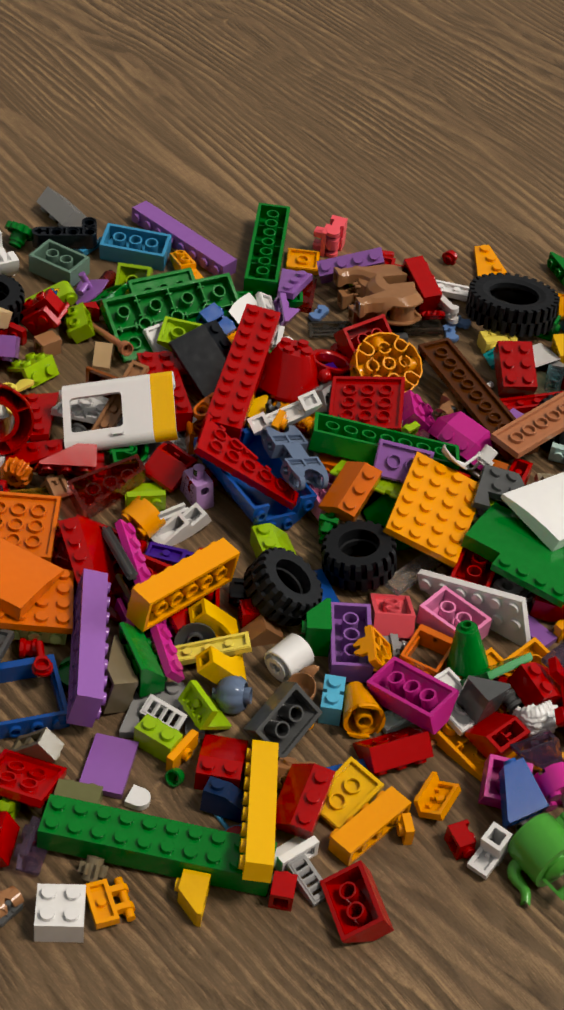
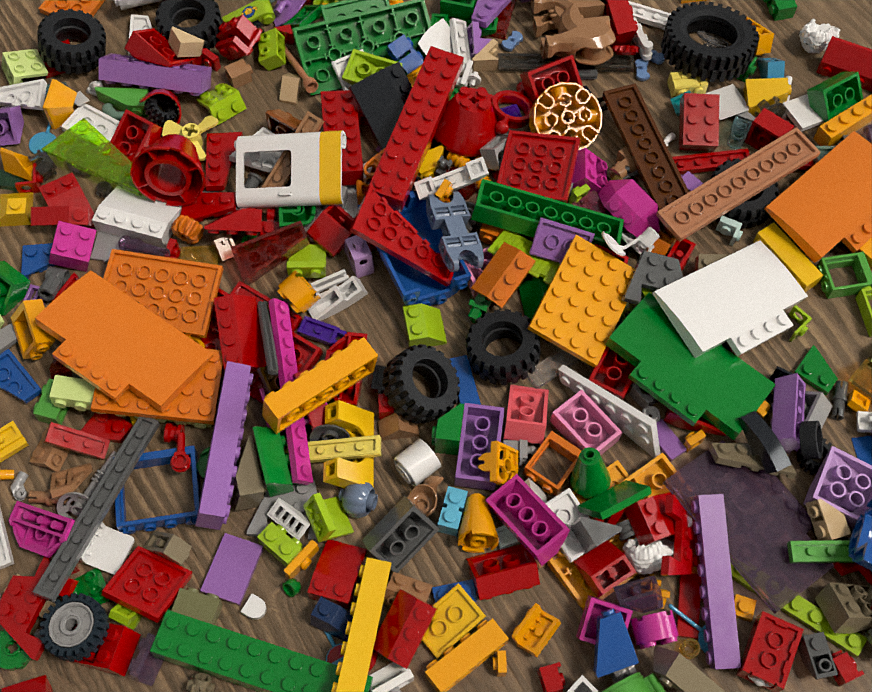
camera: 10 degrees right, 20 degrees up
(297, 325) = (486, 58): none -> tan slope

